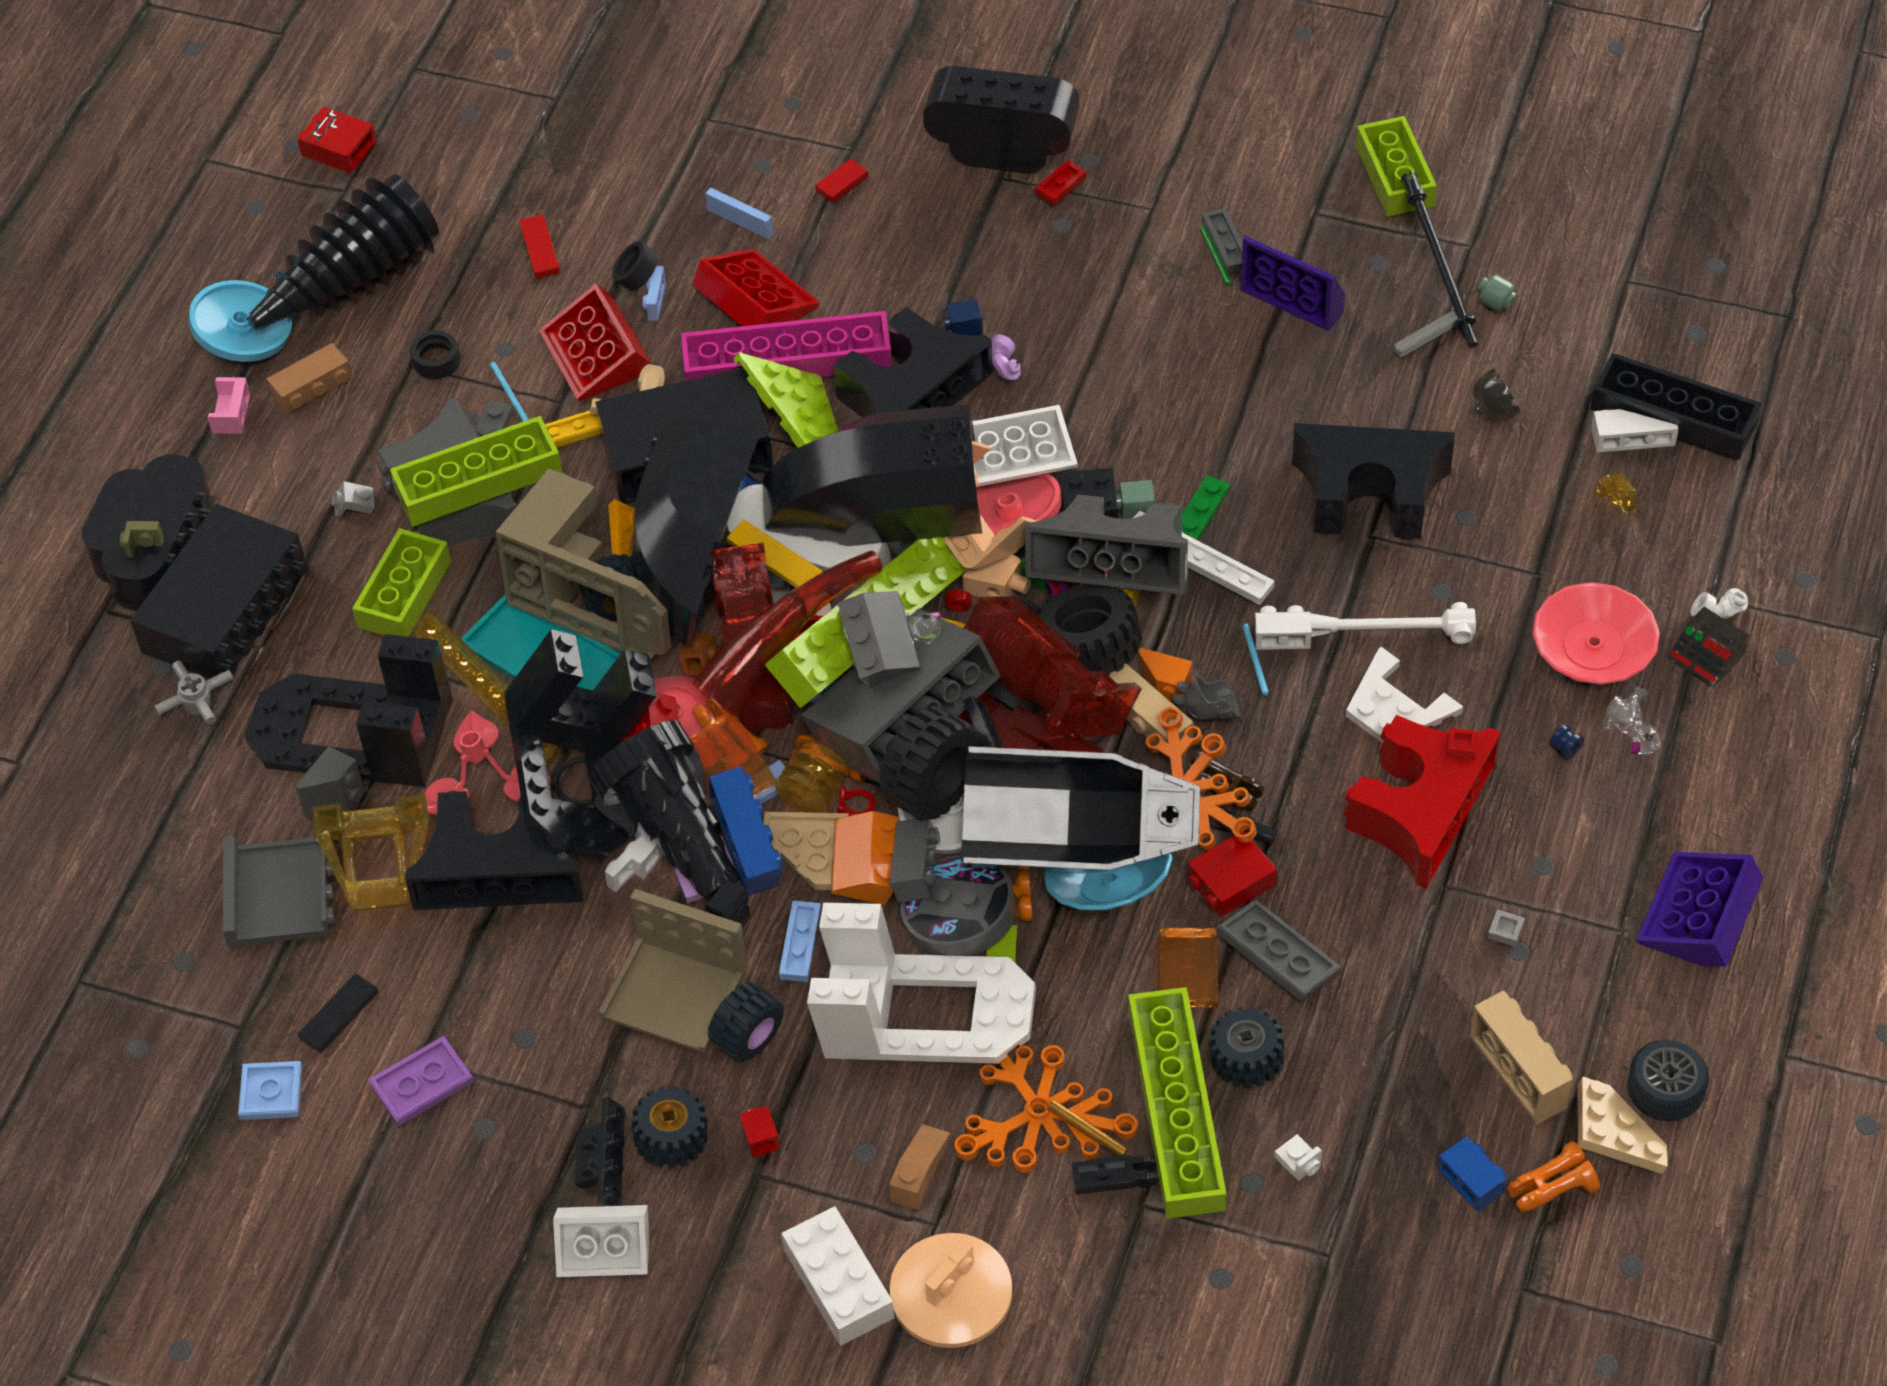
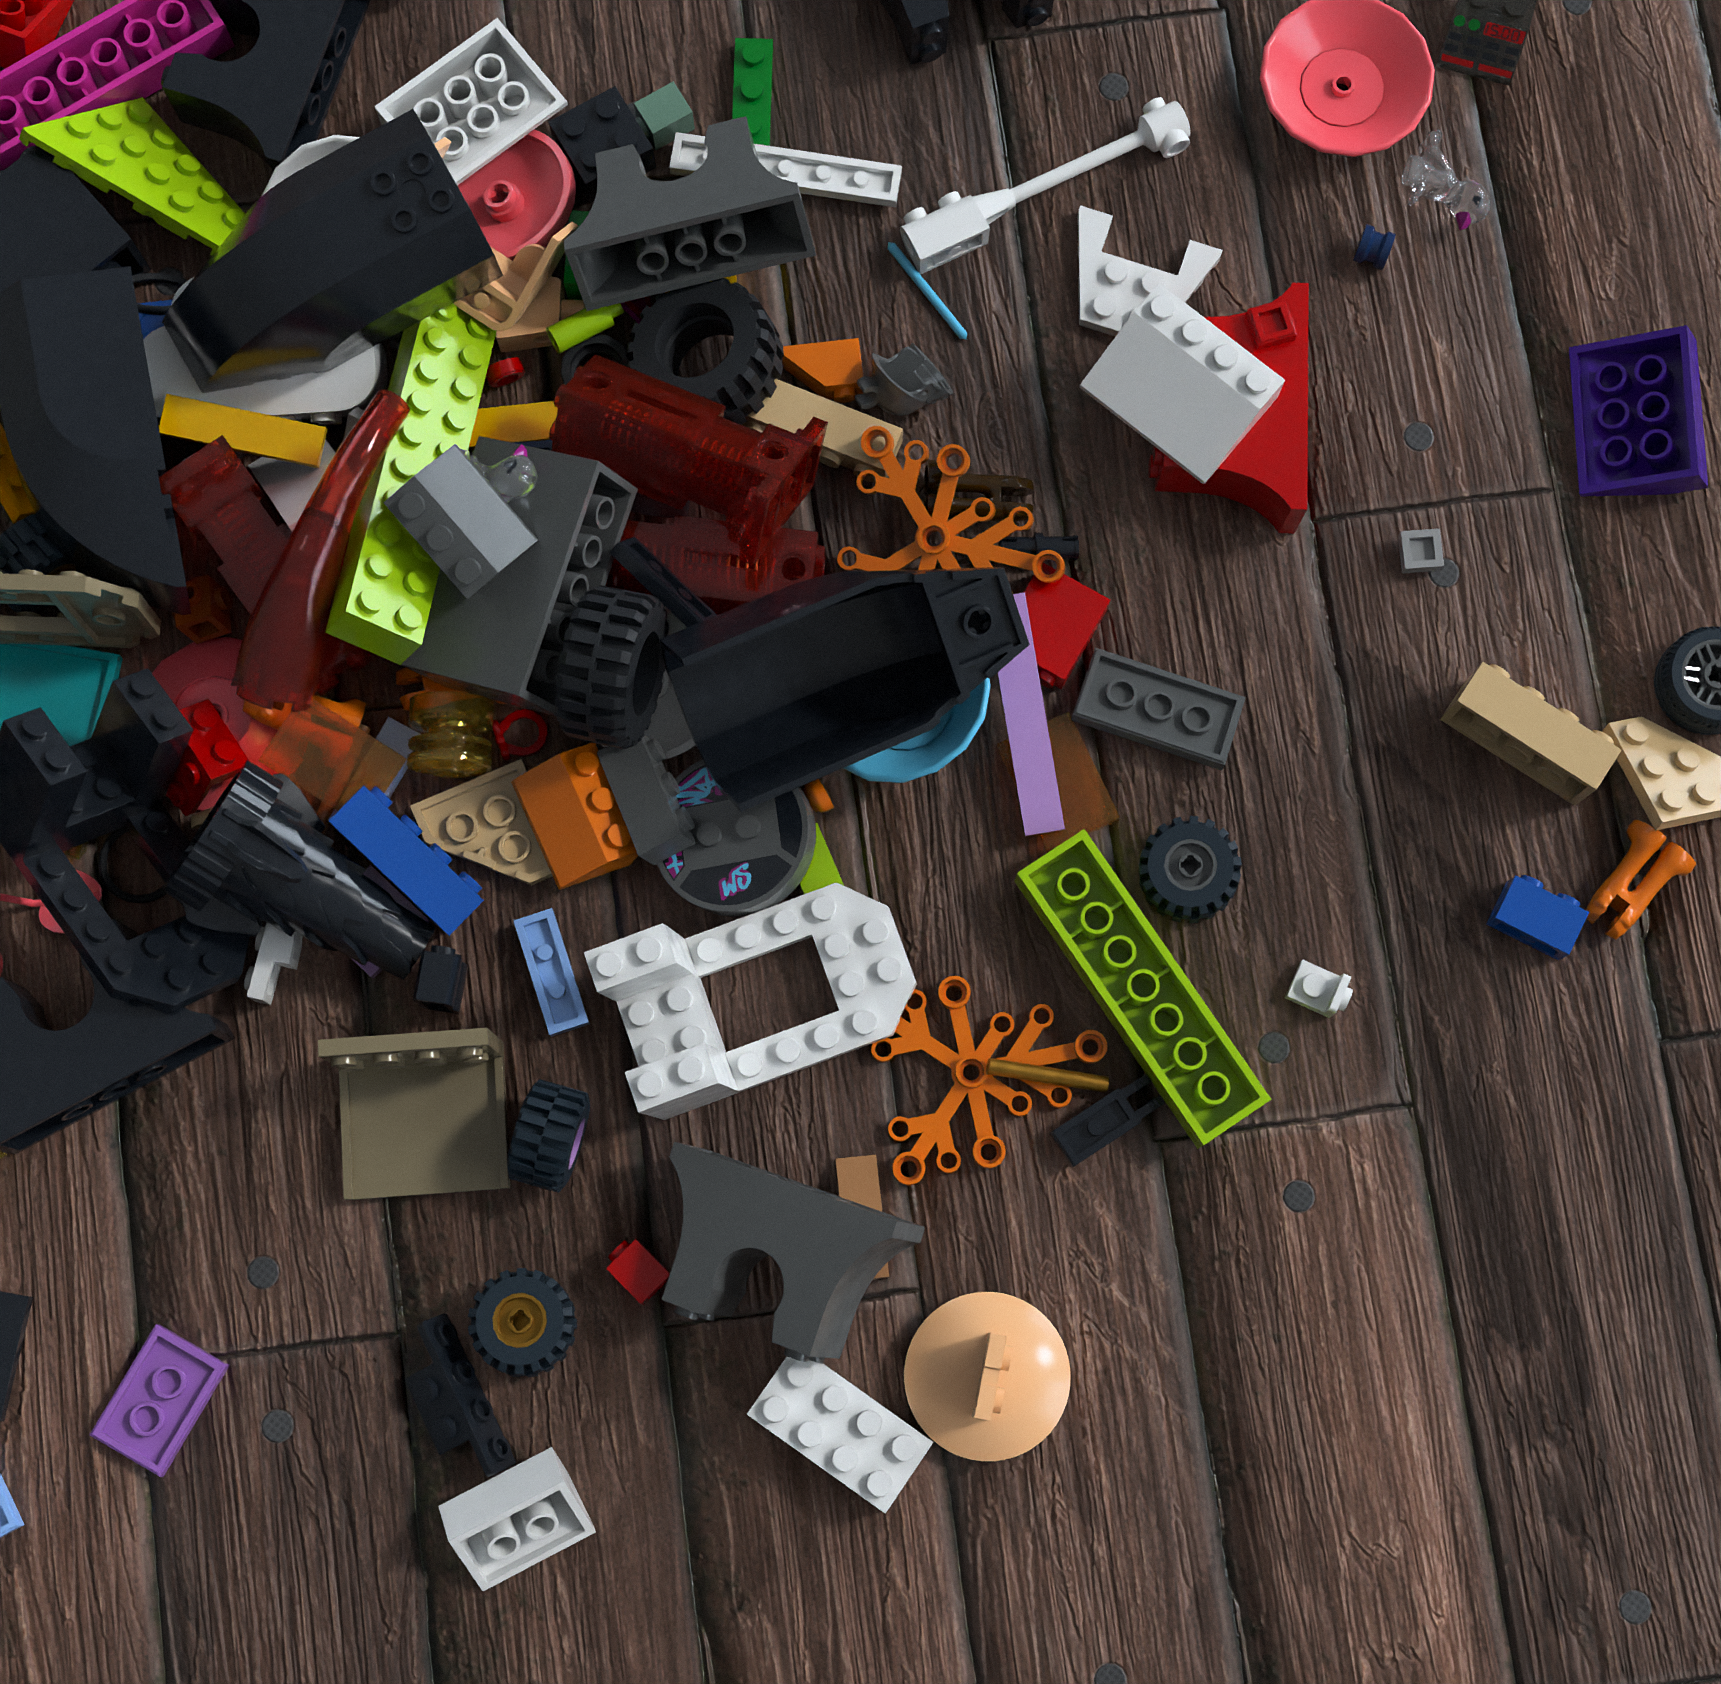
camera: 30 degrees left, 25 degrees up
(854, 1140) = (818, 1239): none -> dark grey piece
(1021, 587) = (582, 326): none -> lime cylinder
(1184, 913) = (1030, 737): none -> lavender tile
(1383, 752) = (1182, 383): none -> white slope

